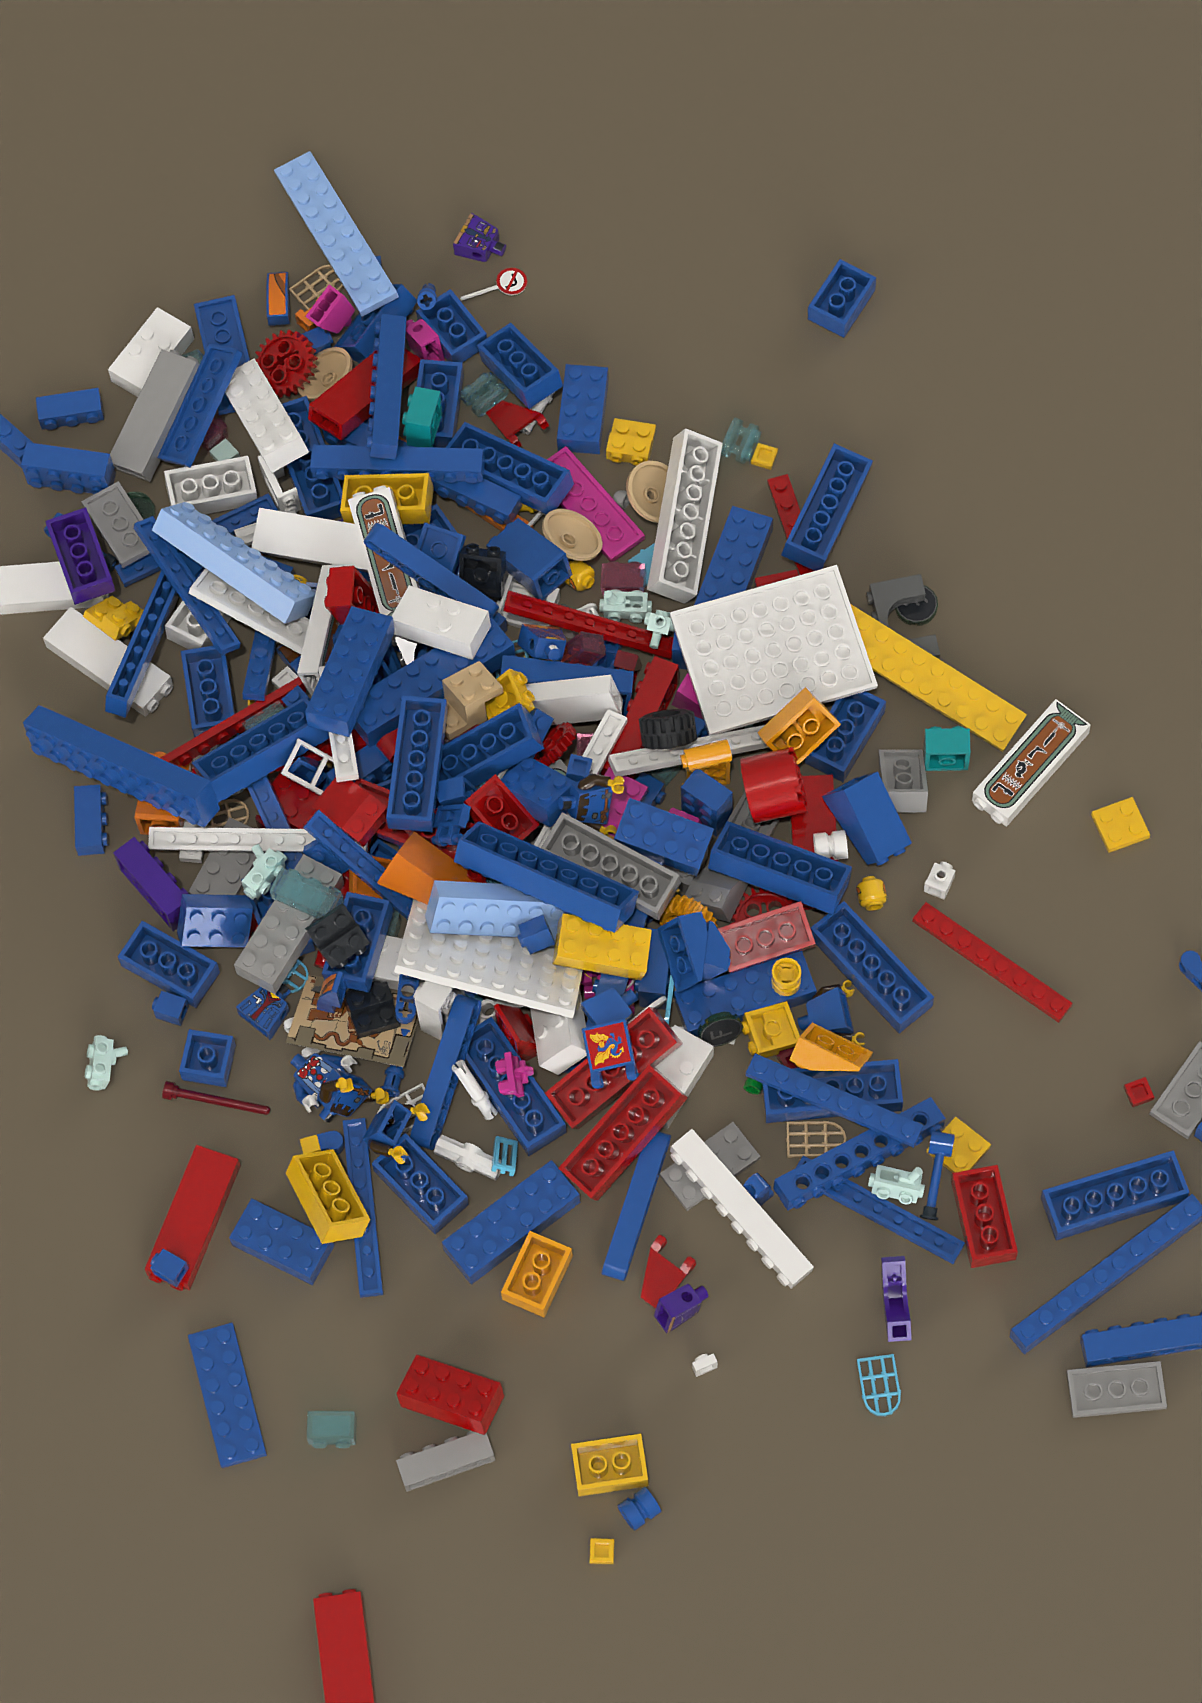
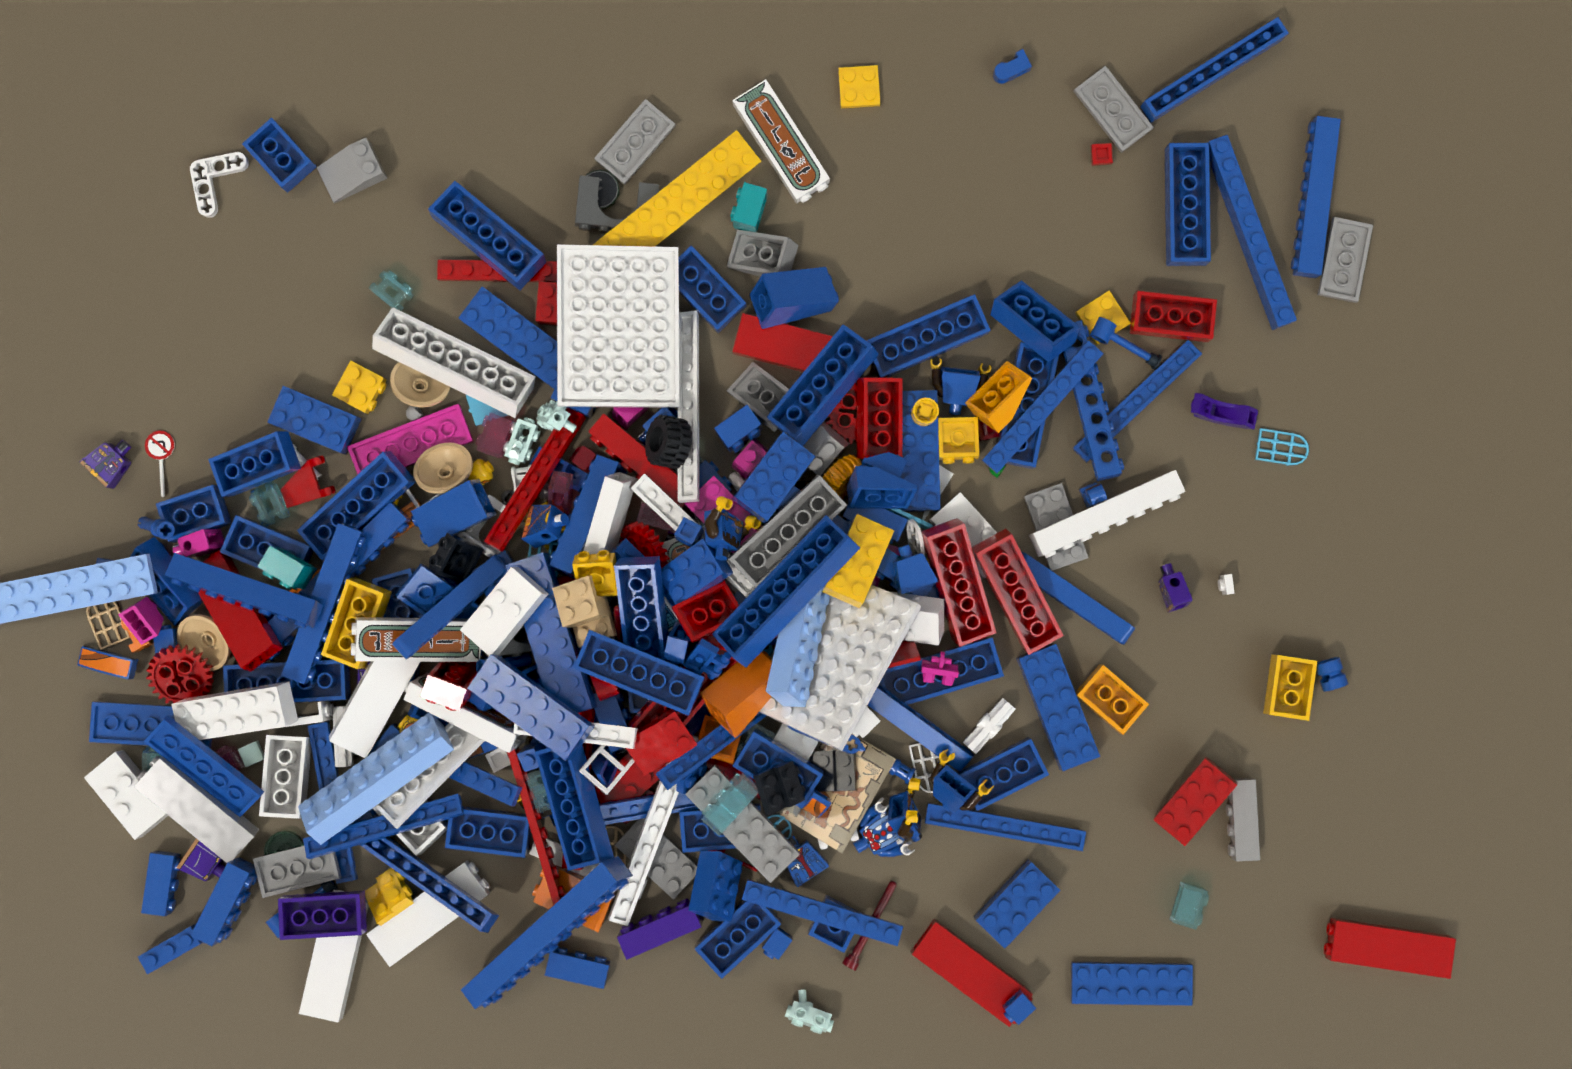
camera: 80 degrees left, 20 degrees up
(101, 434) = (201, 862): none -> dark purple torso
(216, 1035) = (822, 912): none -> blue plate
(263, 873) = (684, 829): light aqua brick -> none
(322, 1142) = (940, 841): blue leg -> none
(327, 1196) = (995, 856): yellow brick -> none
(479, 1097) = (942, 702): white pin -> none
(502, 1166) = (1014, 701): medium azure tile -> none
(535, 934) = (830, 614): blue brick -> none
(601, 1551) = (1352, 713): yellow tile -> none
(609, 1048) = (948, 582): flag -> none
(662, 1275) = (1138, 595): red flag -> none
(713, 756) = (709, 417): light orange piece -> none
(720, 1029) = (945, 481): tile -> none
(764, 456) = (412, 274): yellow tile -> none
(773, 785) = (747, 367): red brick -> none
(800, 724) = (699, 328): light orange brick -> none
(802, 244) = (209, 173): none -> white beam
(825, 1144) = (1062, 440): tan window -> none
(832, 845) = (813, 336): white wheel -> none
(852, 370) = (351, 170): none -> light grey slope
(871, 893) = (857, 315): yellow head -> none
(897, 1184) = (1124, 375): light aqua brick -> none
(925, 1065) = (1034, 321): none -> blue brick
(940, 886) = (863, 261): white brick -> none
(978, 622) = (635, 142): none -> light grey plate
(992, 962) = (948, 235): red plate -> none

